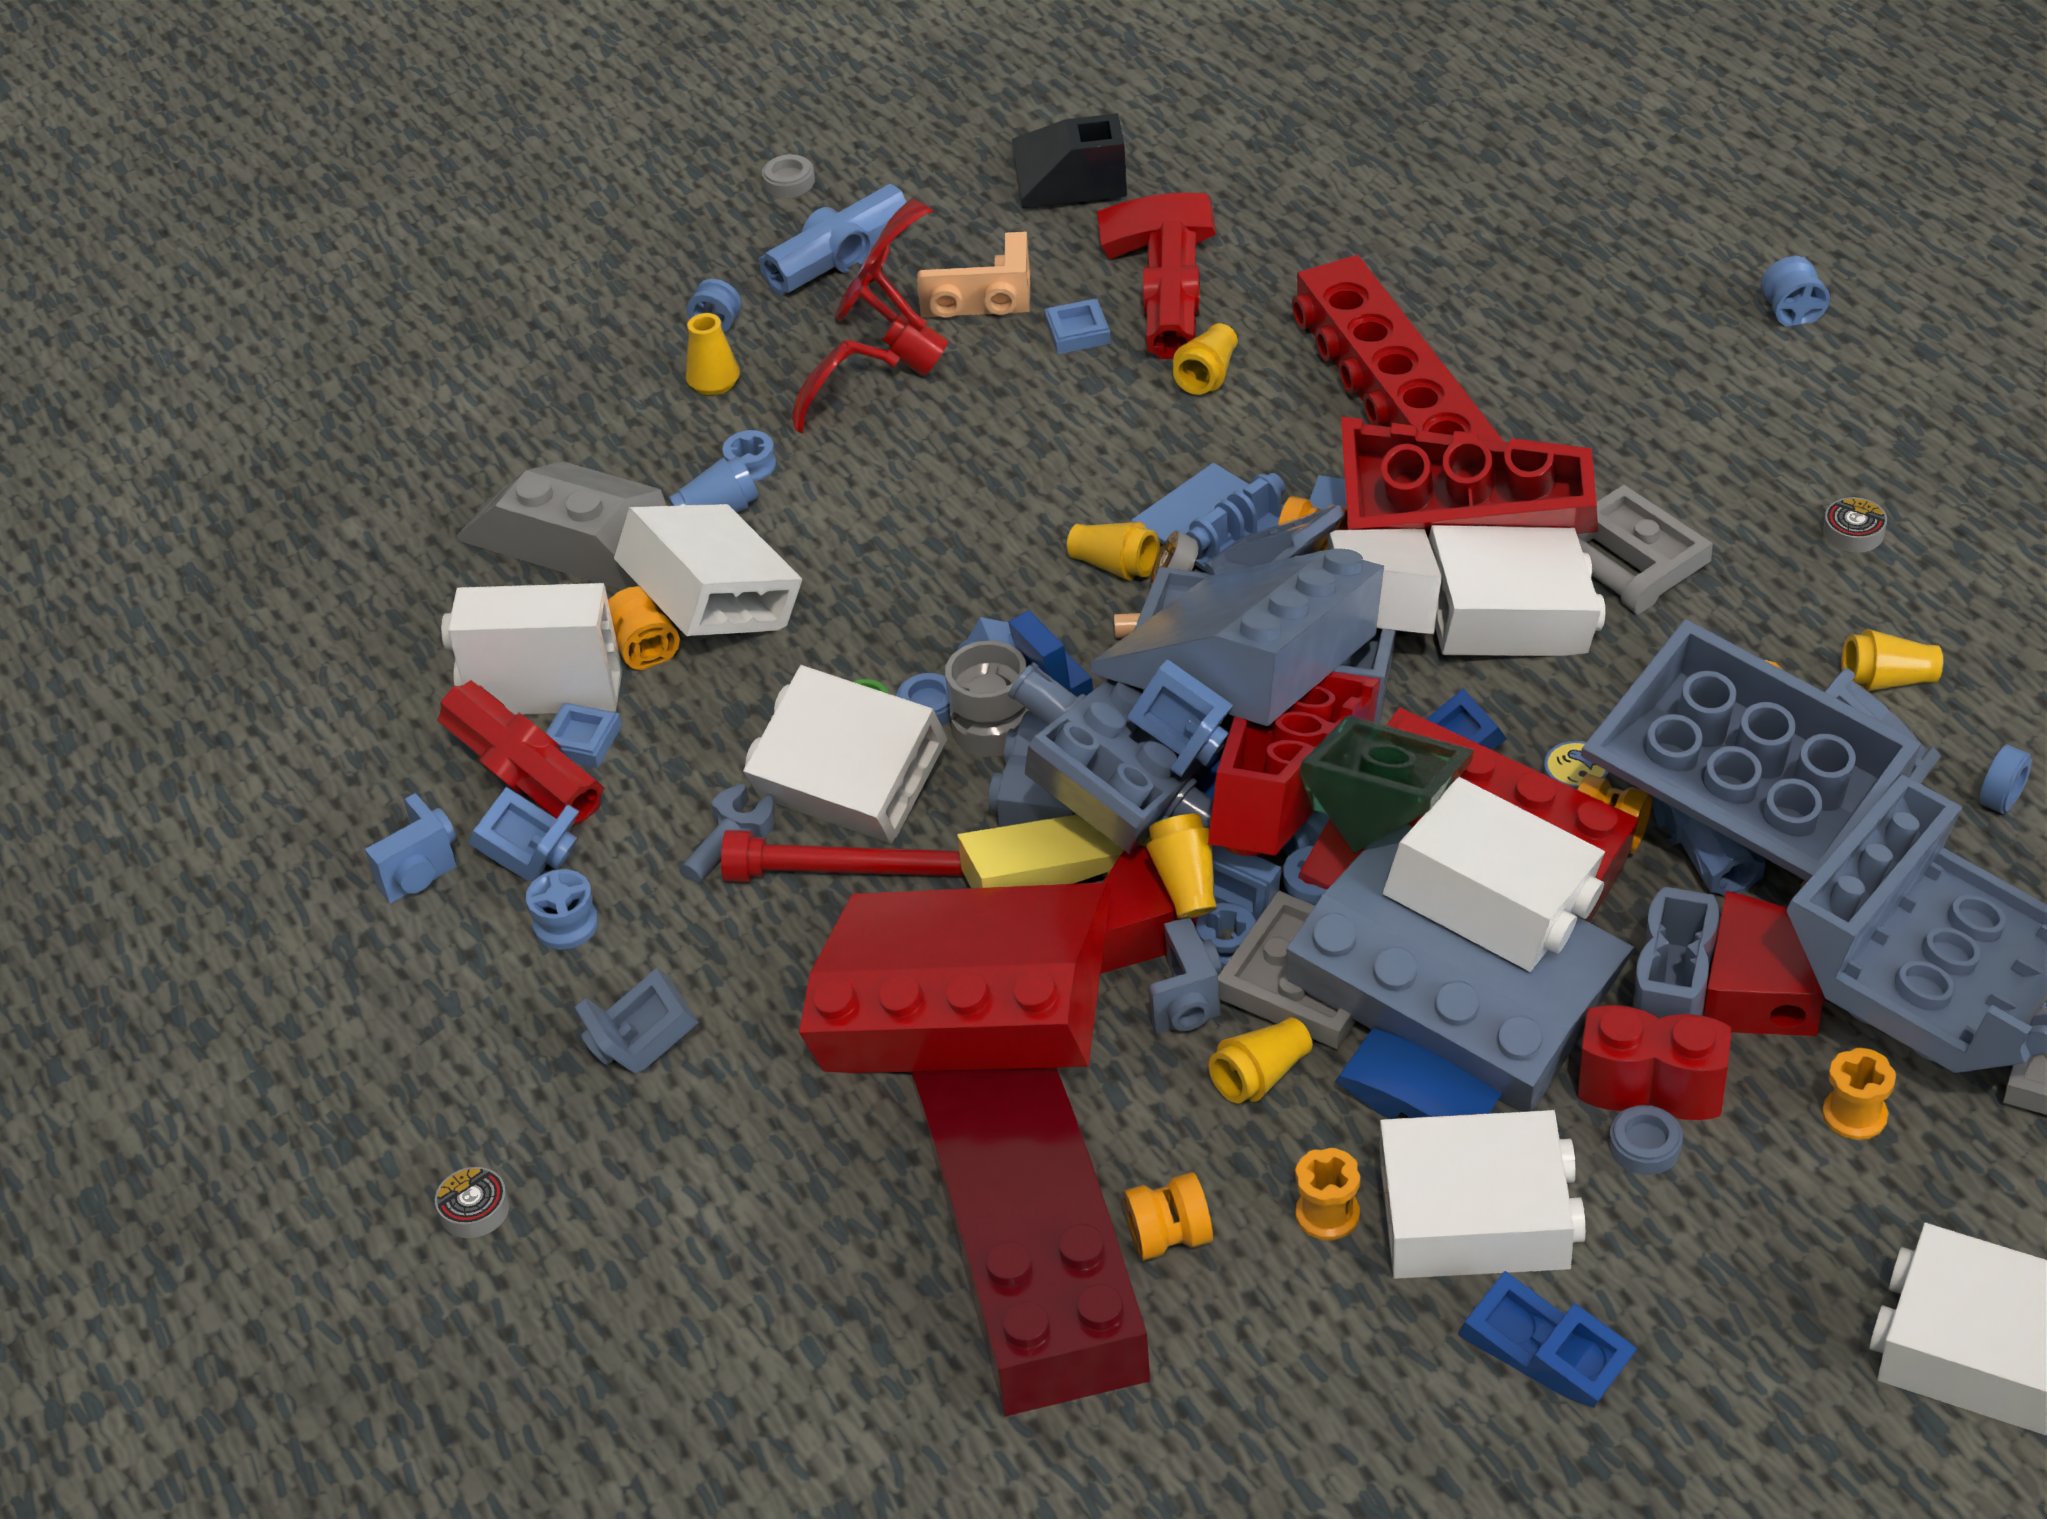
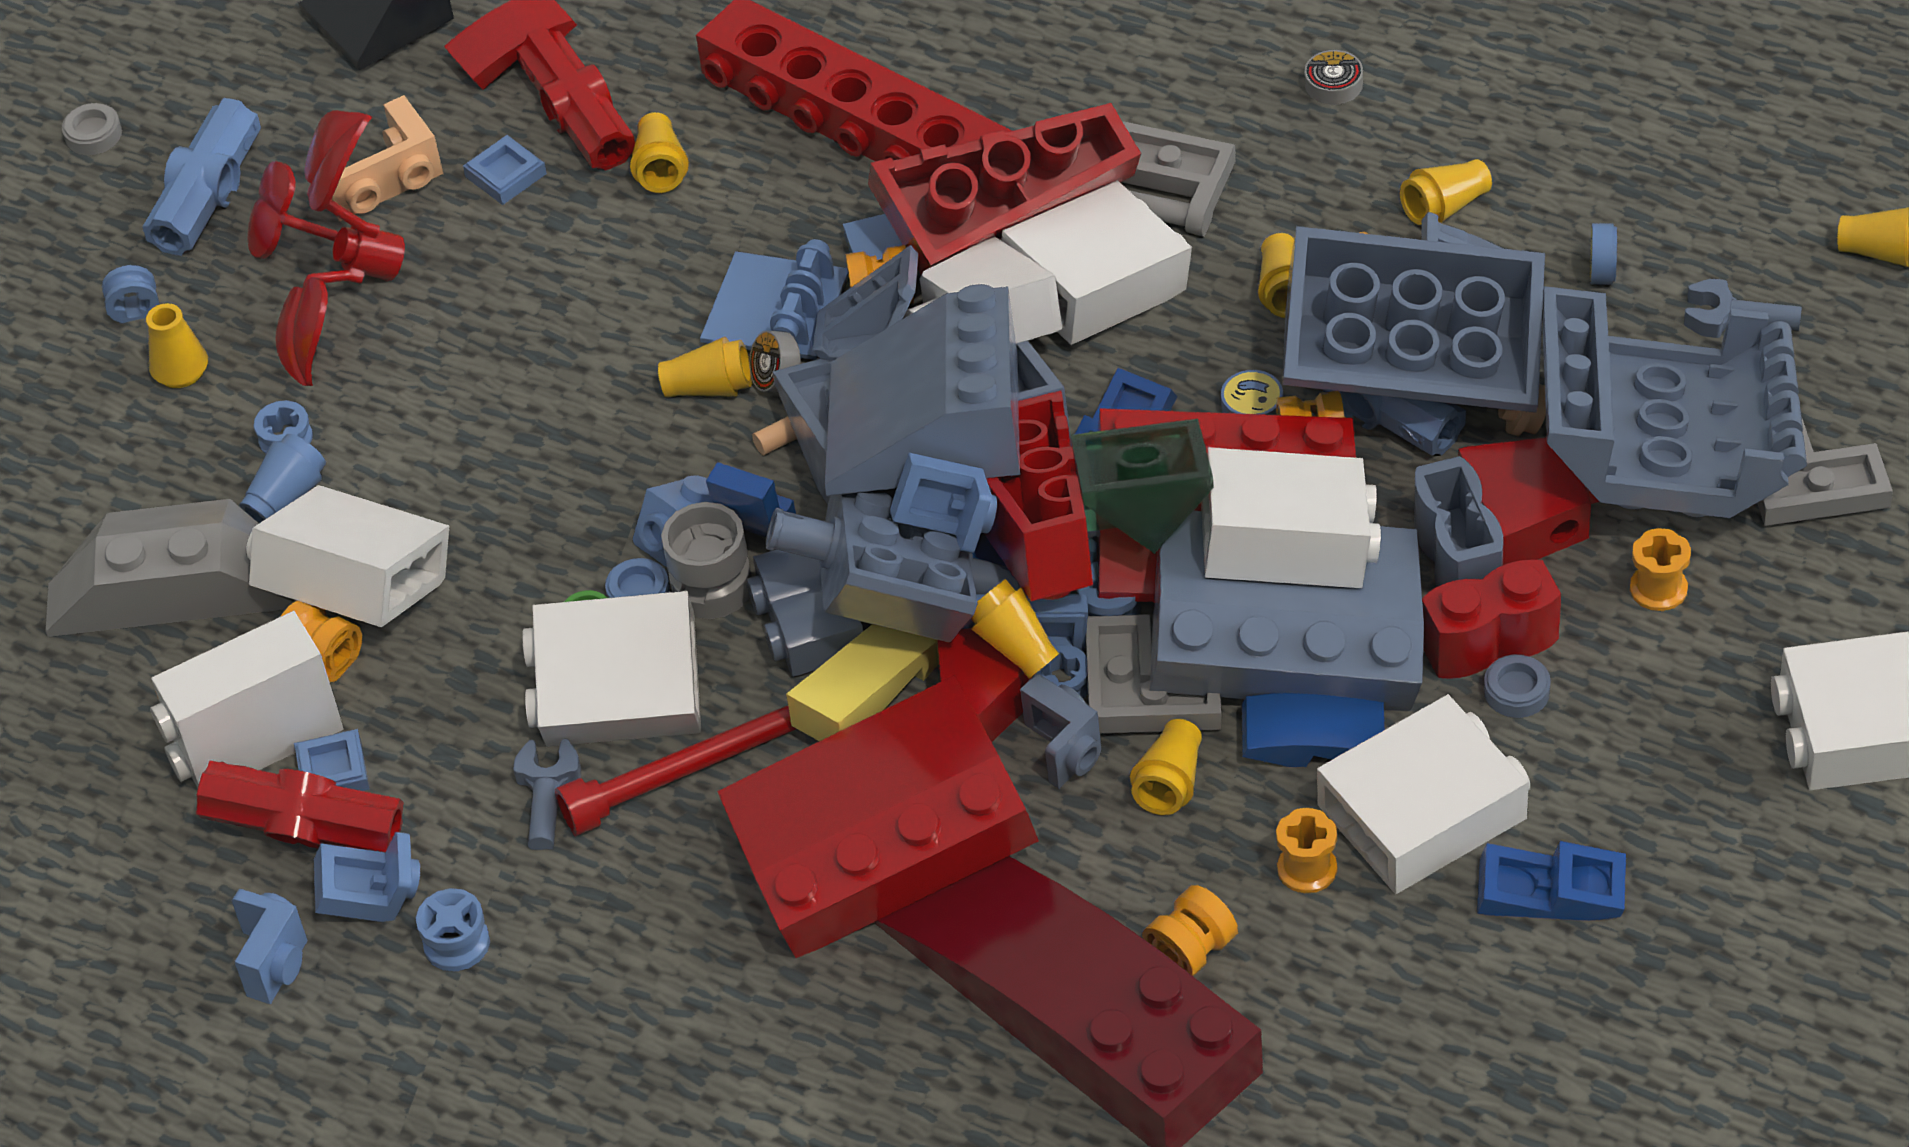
camera: 30 degrees left, 5 degrees up
(638, 1024) = (609, 993): sand blue bracket -> none

